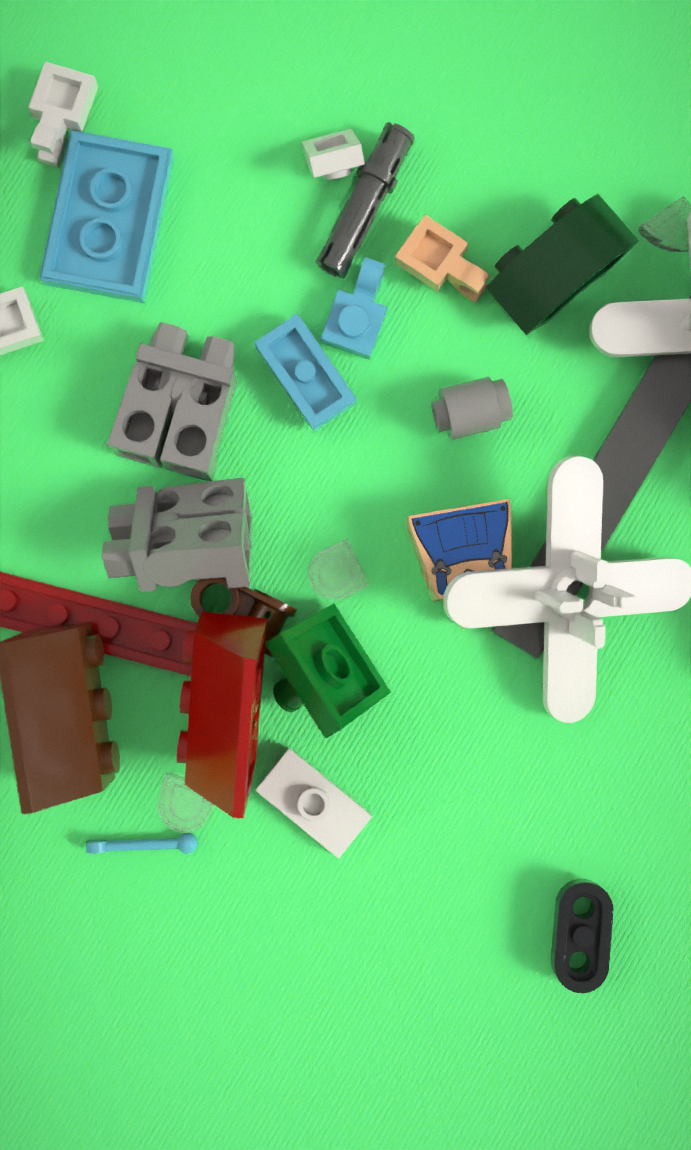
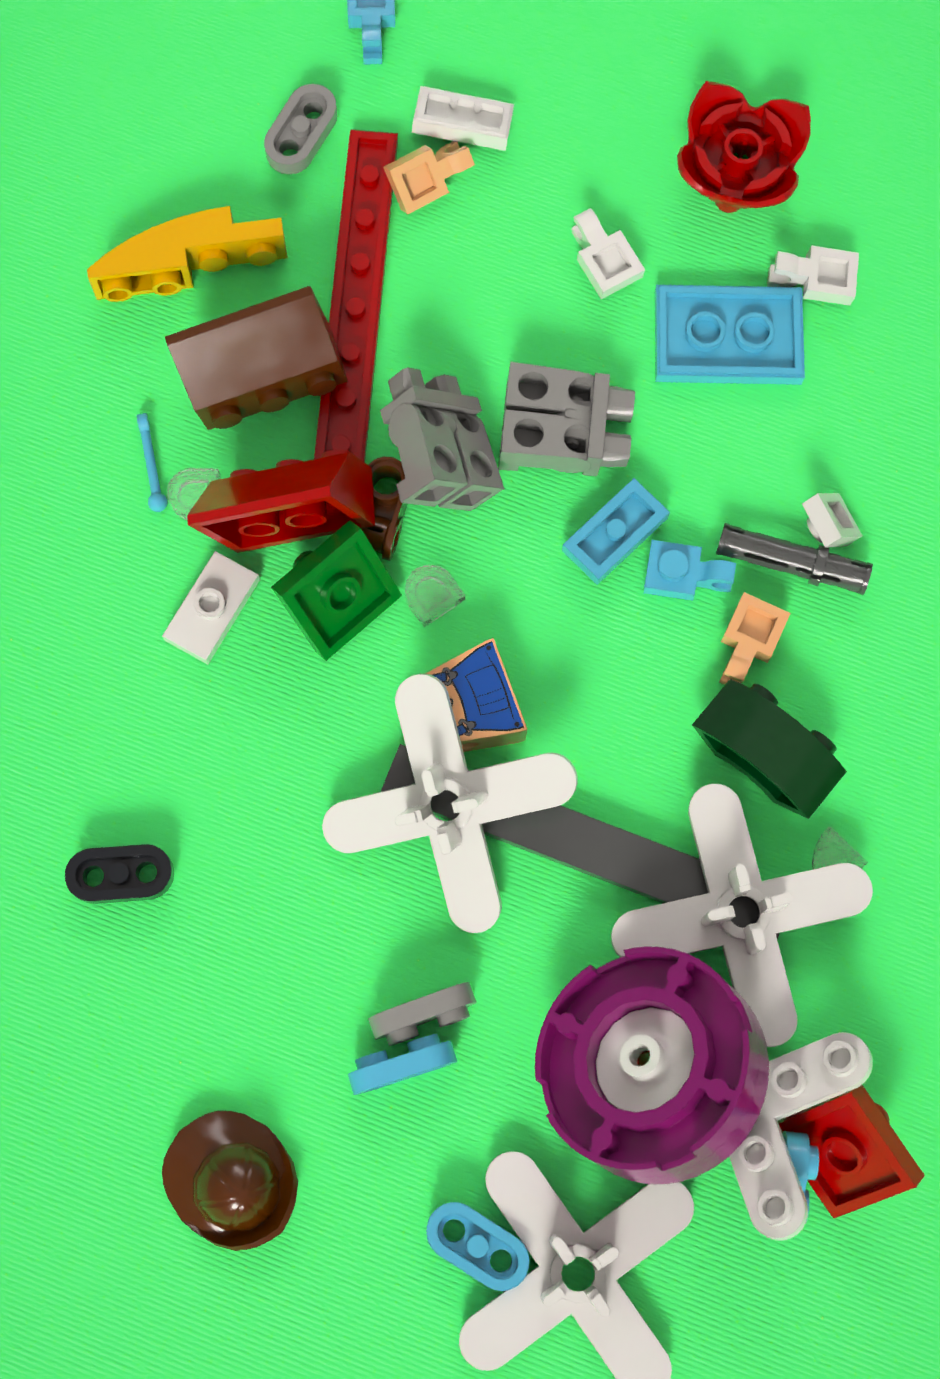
camera: 80 degrees right, 10 degrees down
(472, 407) = (612, 688): light grey brick -> none

